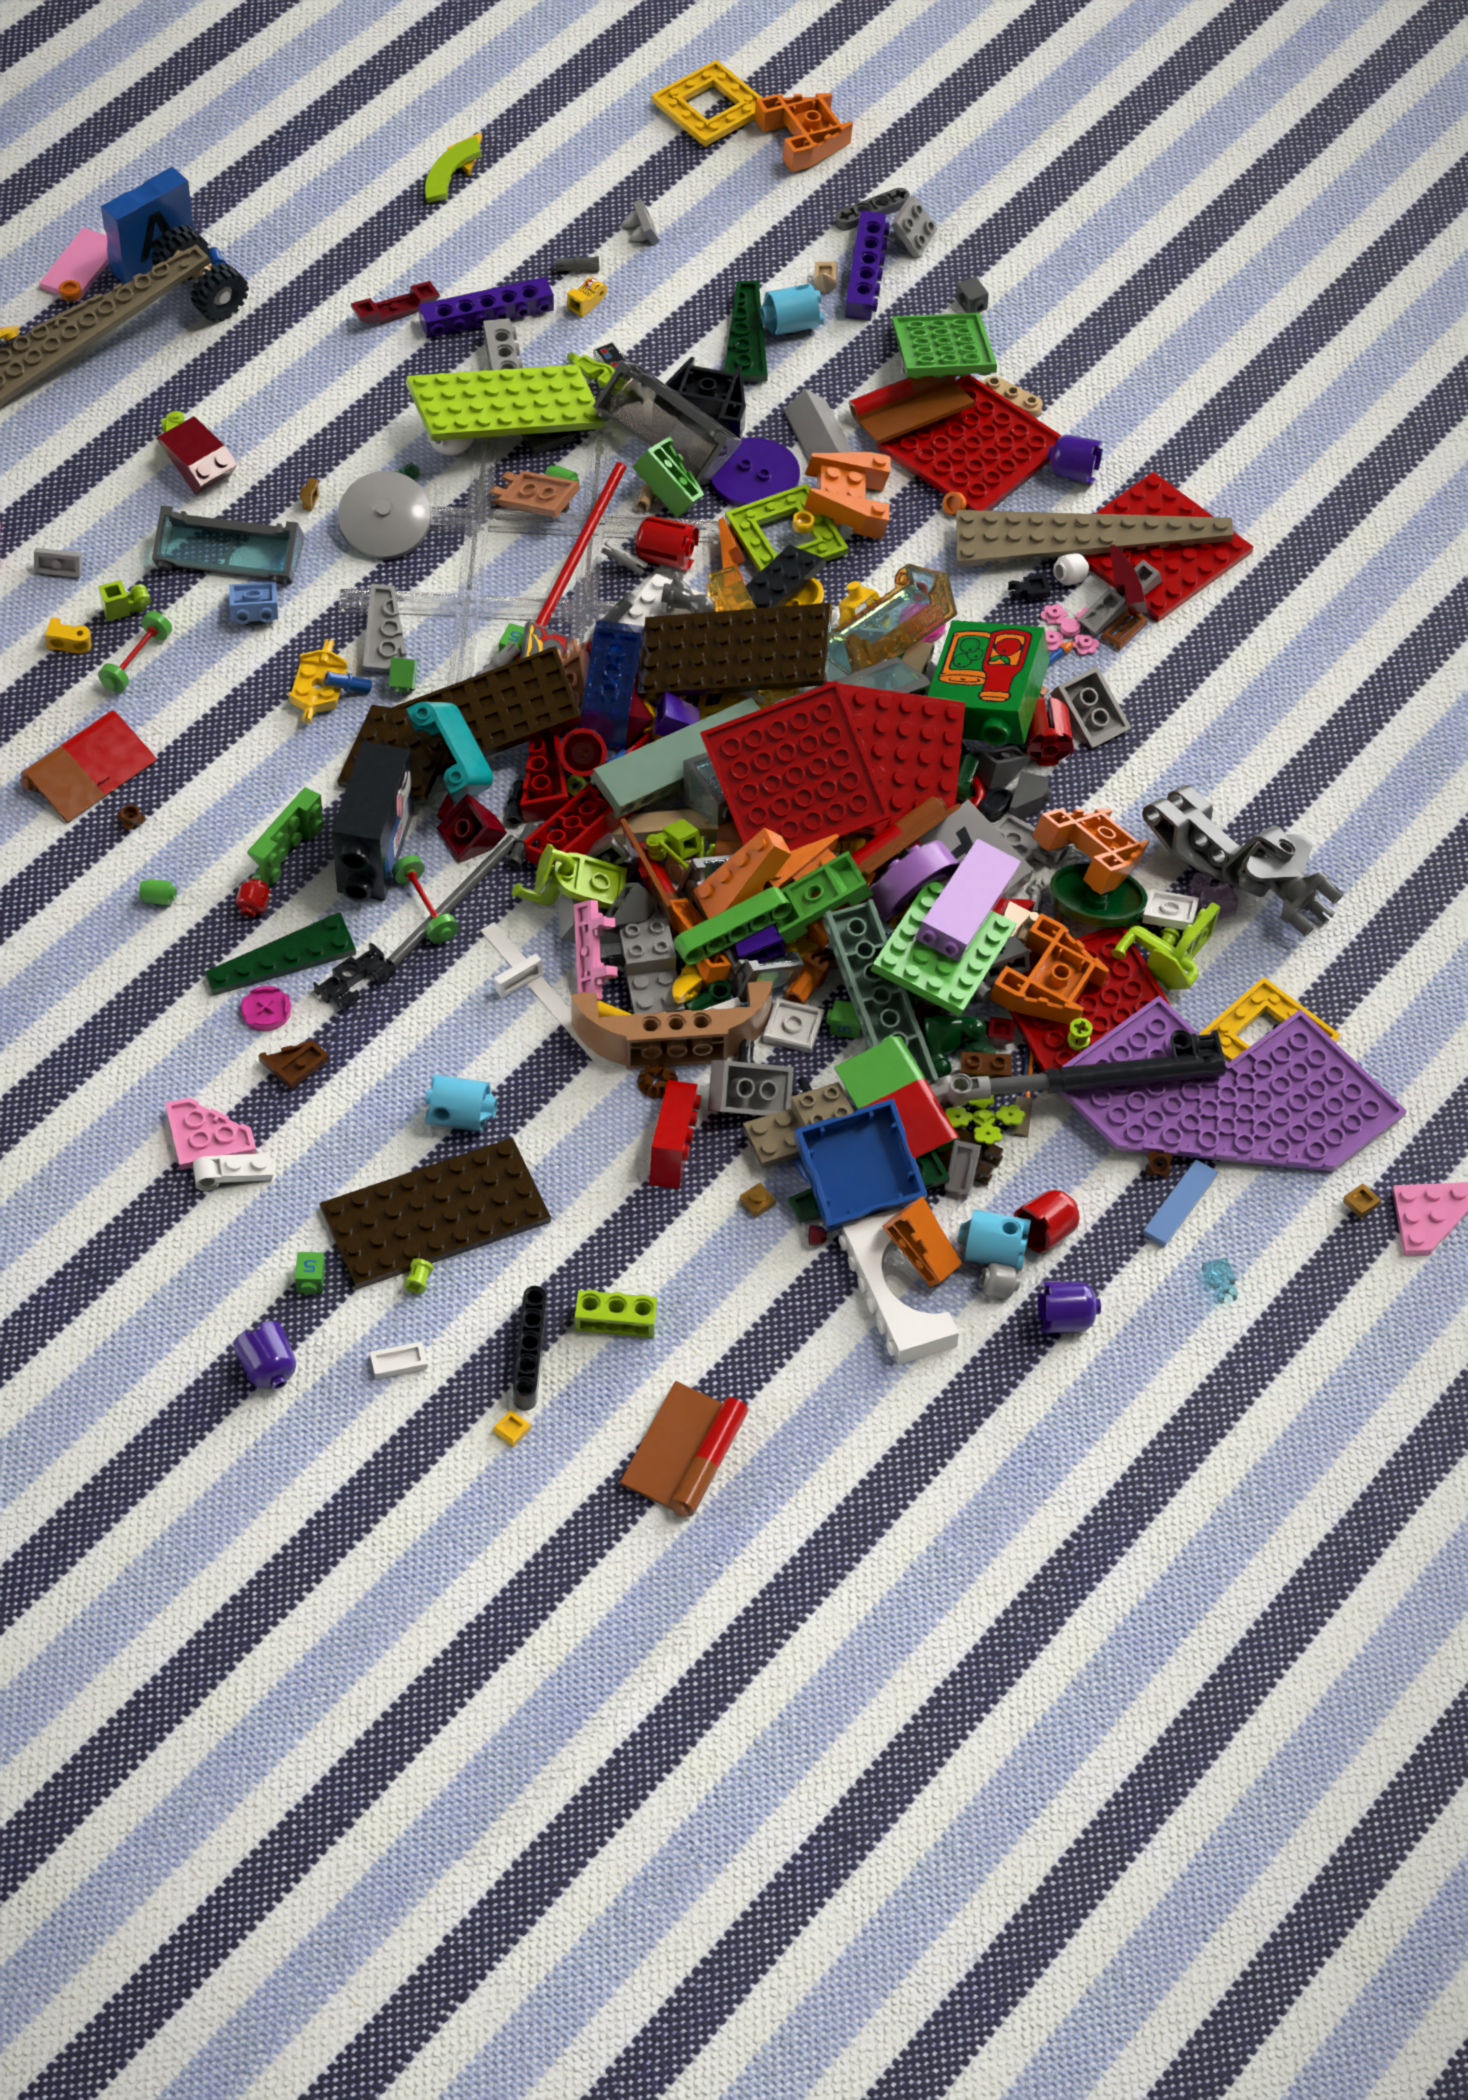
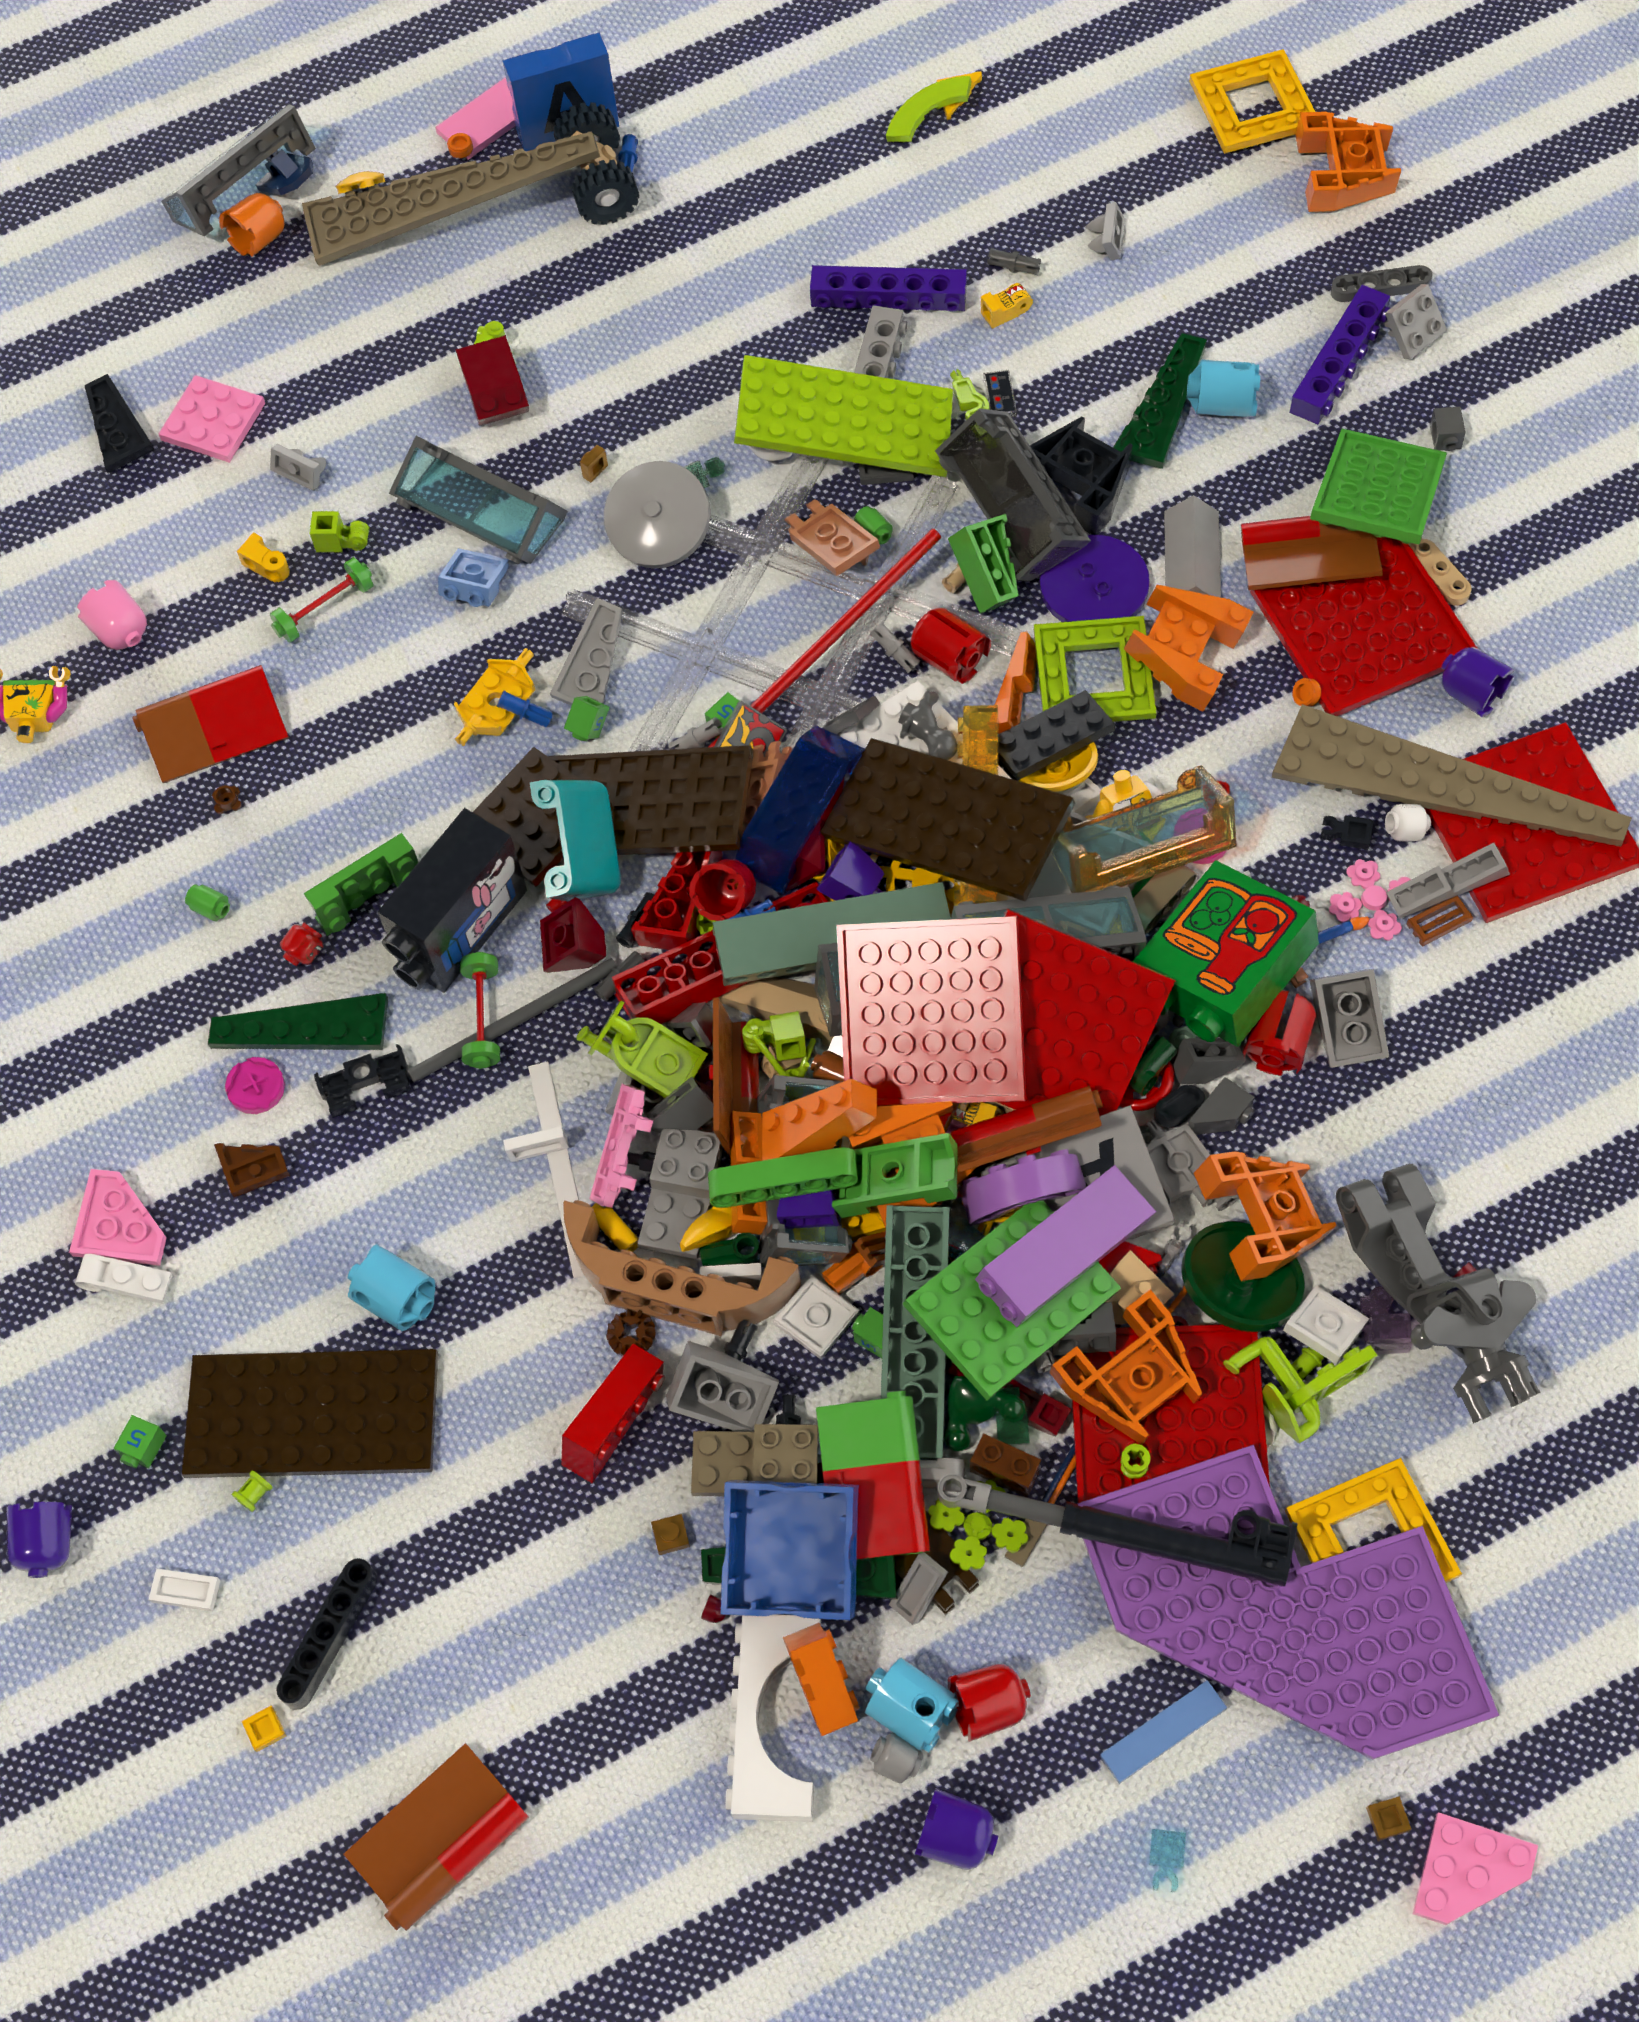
camera: 30 degrees right, 10 degrees up
(395, 307) = (791, 260): dark red slope -> none
(625, 1323) = (446, 1641): lime brick -> none
(803, 522) = (1115, 666): yellow tile -> none
(825, 276) = (1287, 354): tan plate -> none
(1127, 582) = (1460, 868): dark red slope -> none
(1152, 1167) = (1156, 1676): reddish brown plate -> none

